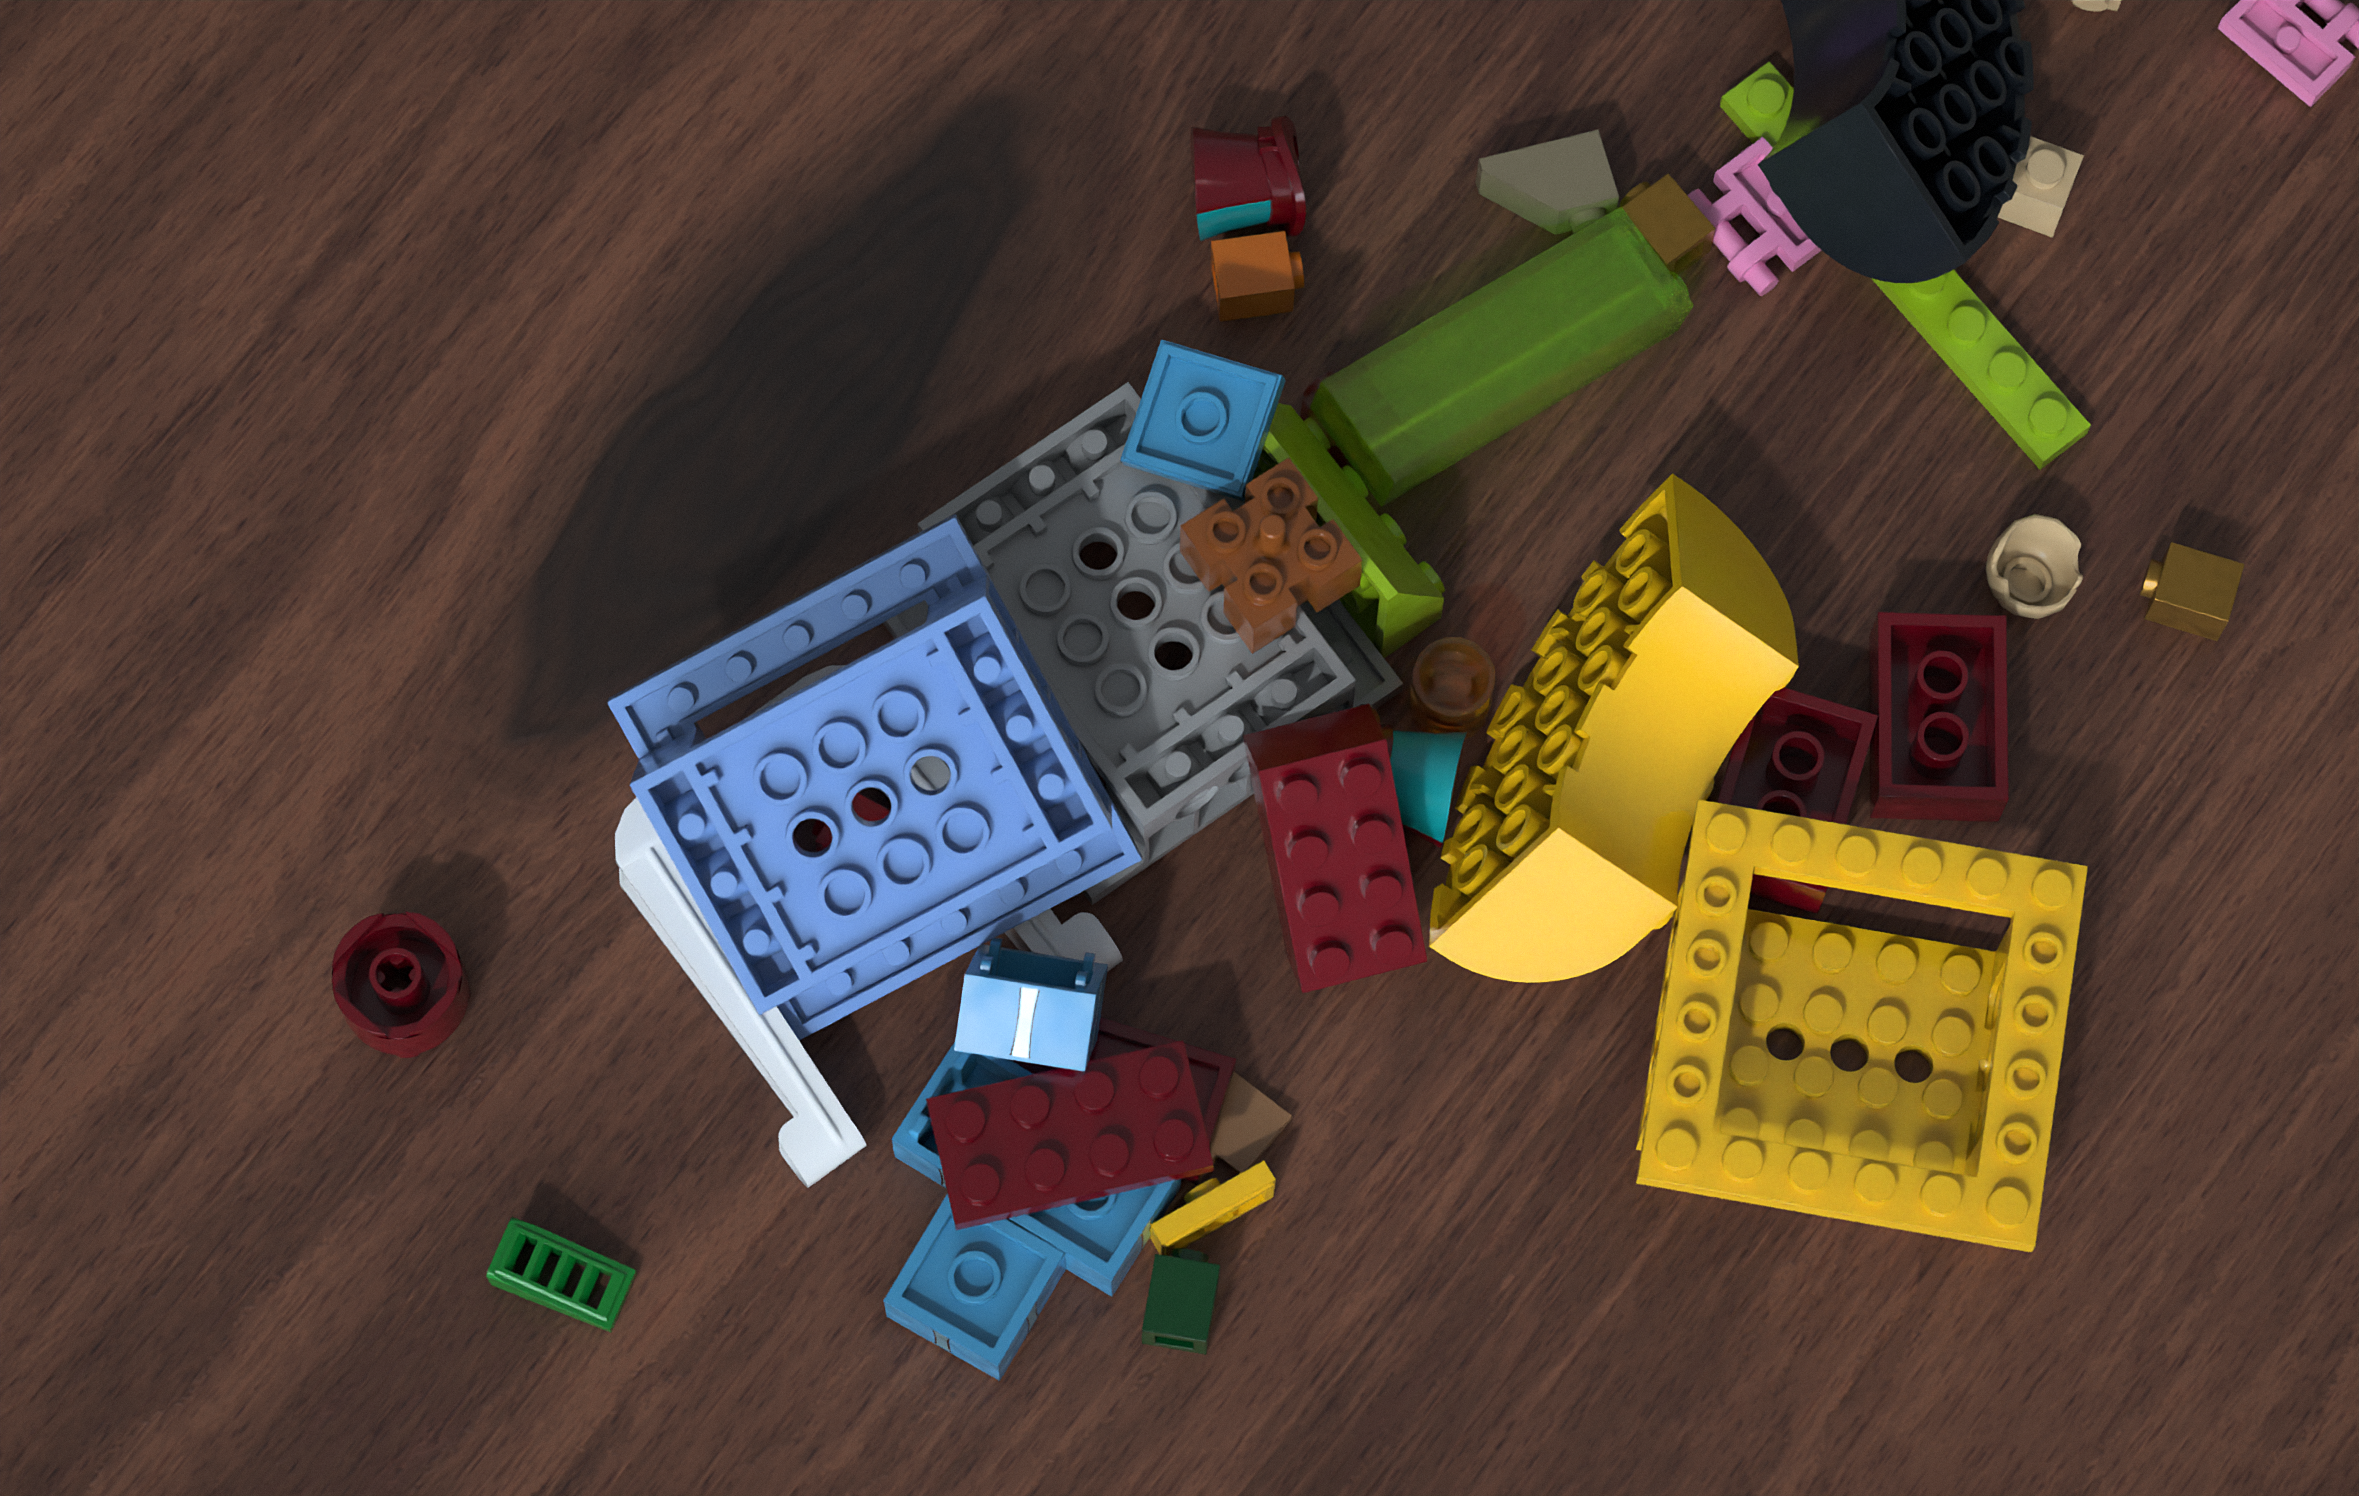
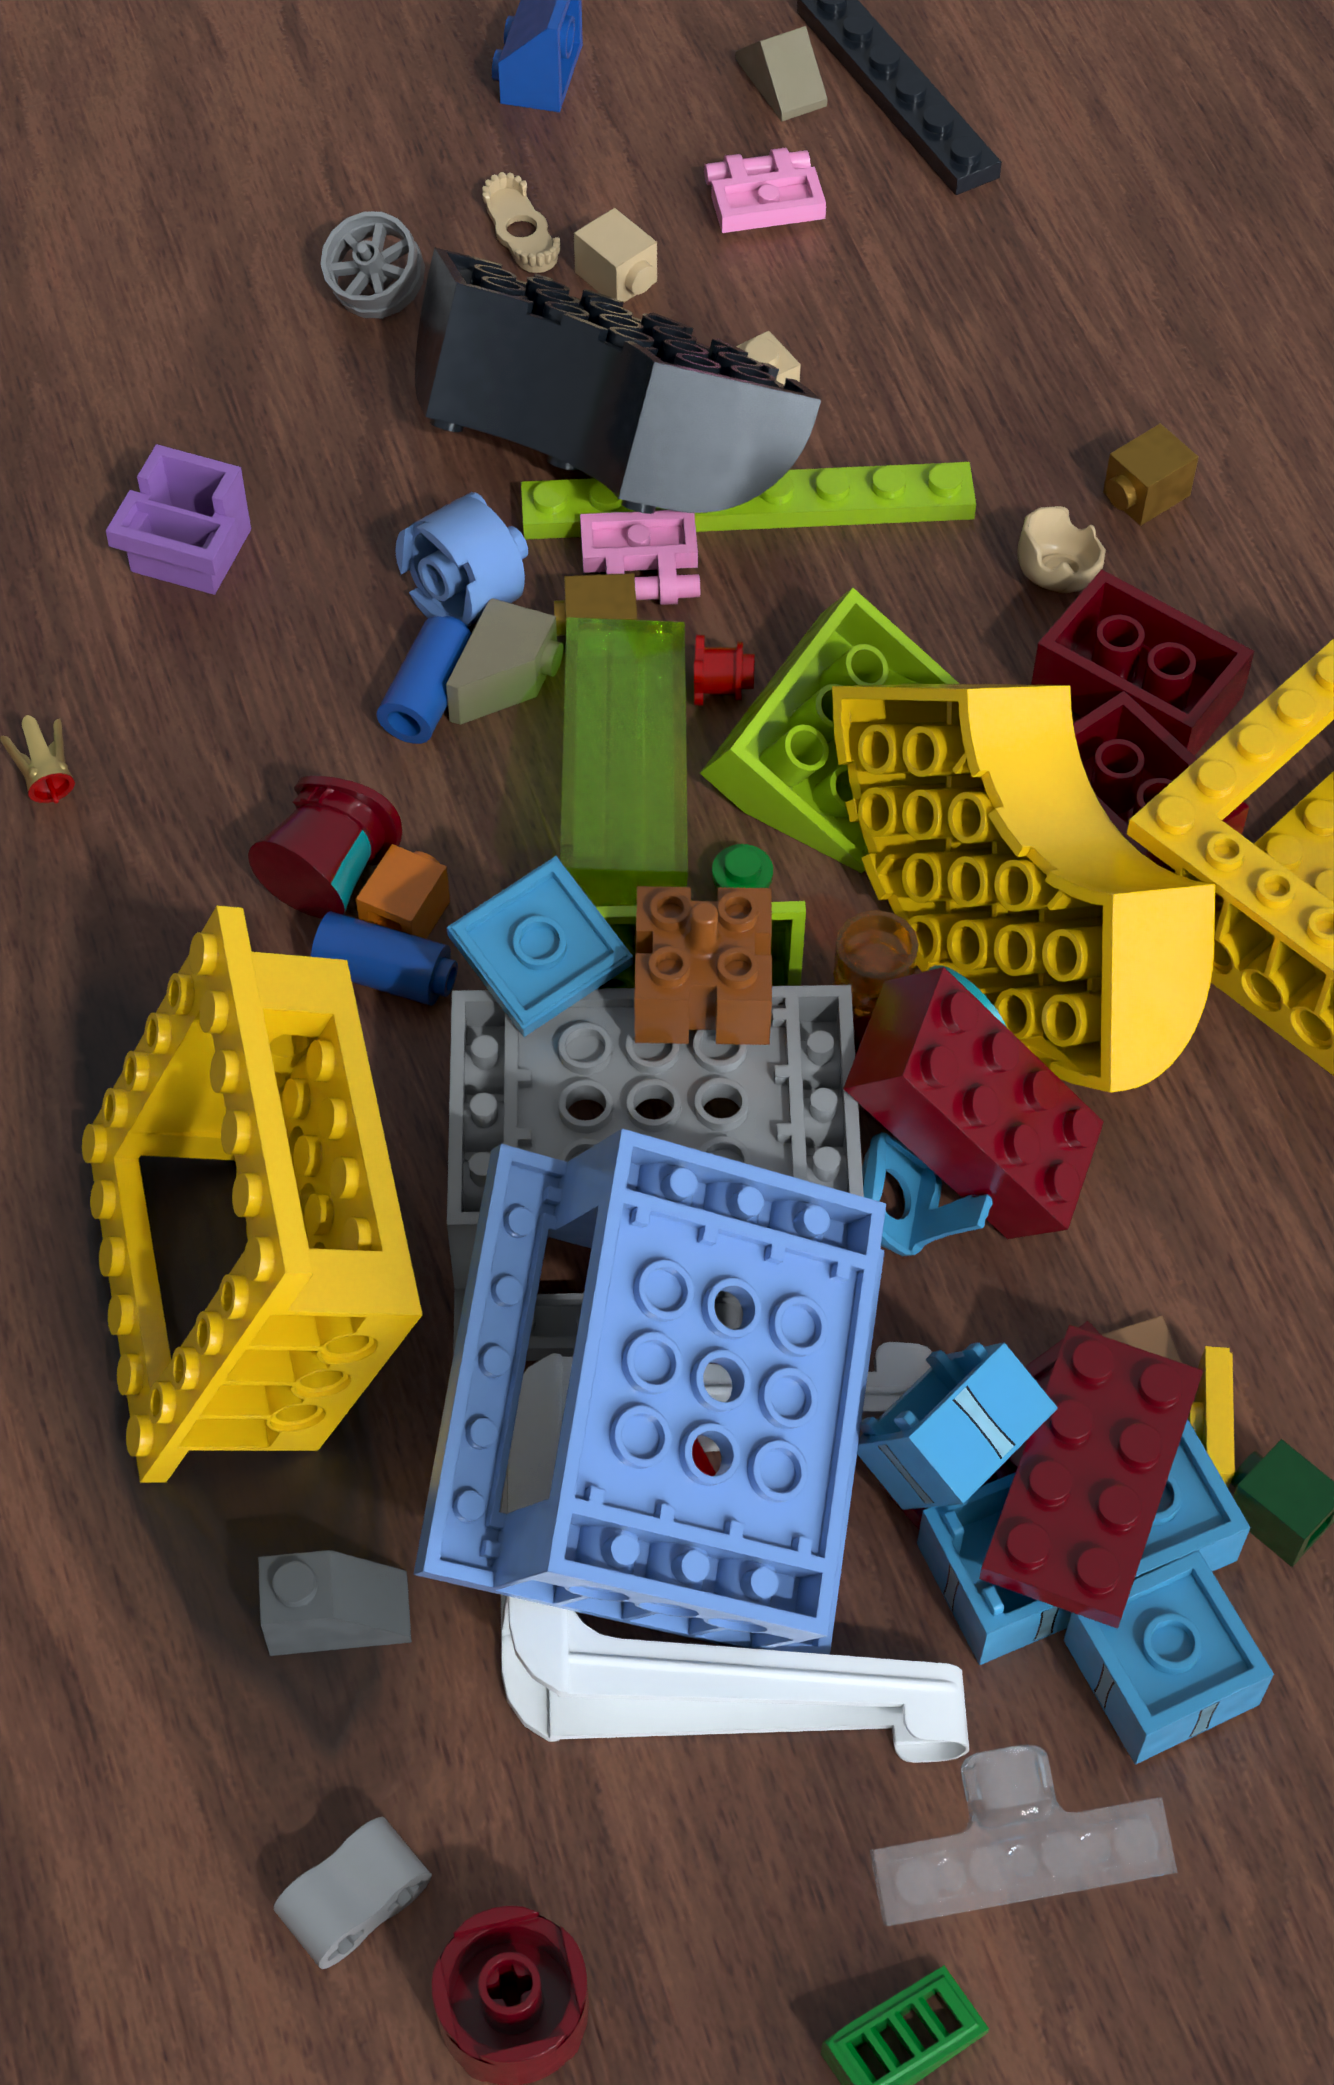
camera: 55 degrees left, 15 degrees down
(407, 826) = (352, 1892): none -> light grey axle
(598, 644) = (331, 1603): none -> dark grey slope
(760, 1268) = (1019, 1844): none -> clear plate
(951, 263) = (270, 1071): none -> yellow plate
(1183, 291) = (387, 958): none -> blue brick
(1234, 877) = (922, 1188): none -> dark azure piece
(1460, 139) = (419, 688): none -> blue brick
(1485, 522) = (742, 867): none -> green plate
(1623, 80) = (462, 559): none -> medium blue brick
(1680, 367) = (721, 670): none -> red brick
(1746, 464) = (783, 750): none -> lime slope

